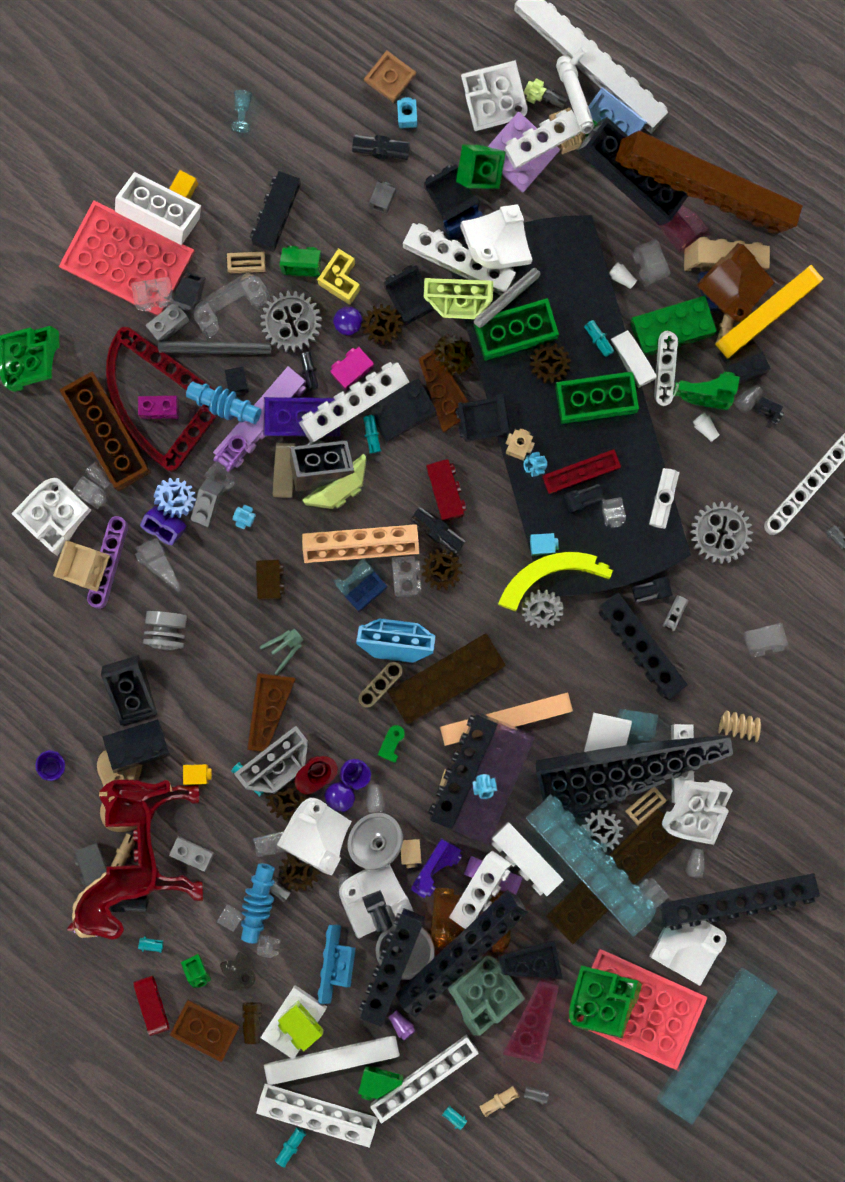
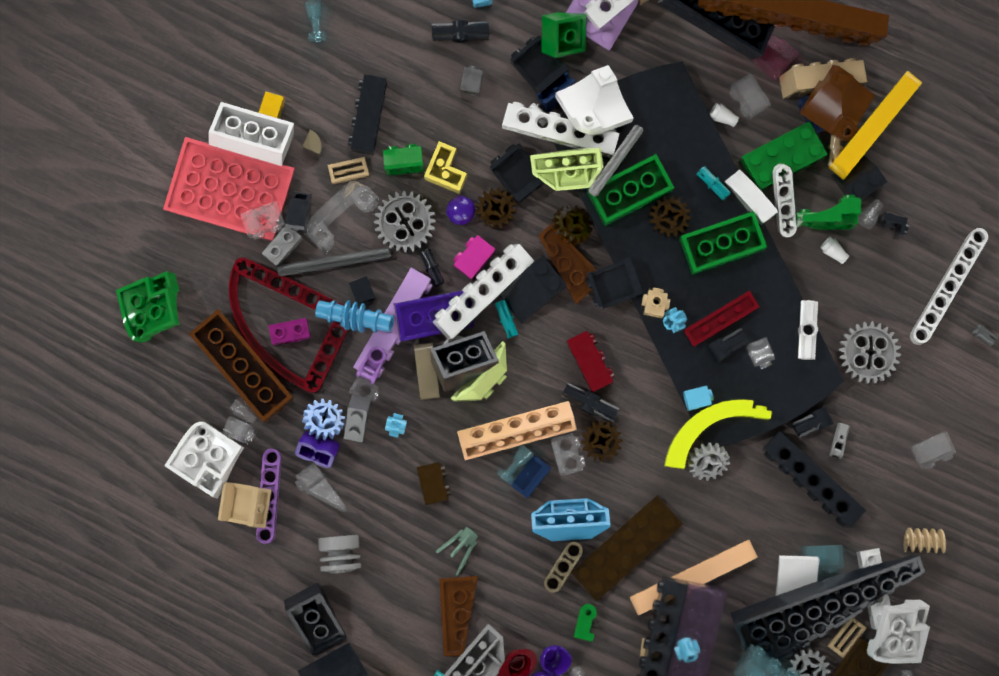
camera: 15 degrees left, 0 degrees up
(217, 229) = (313, 143): none -> dark tan tile

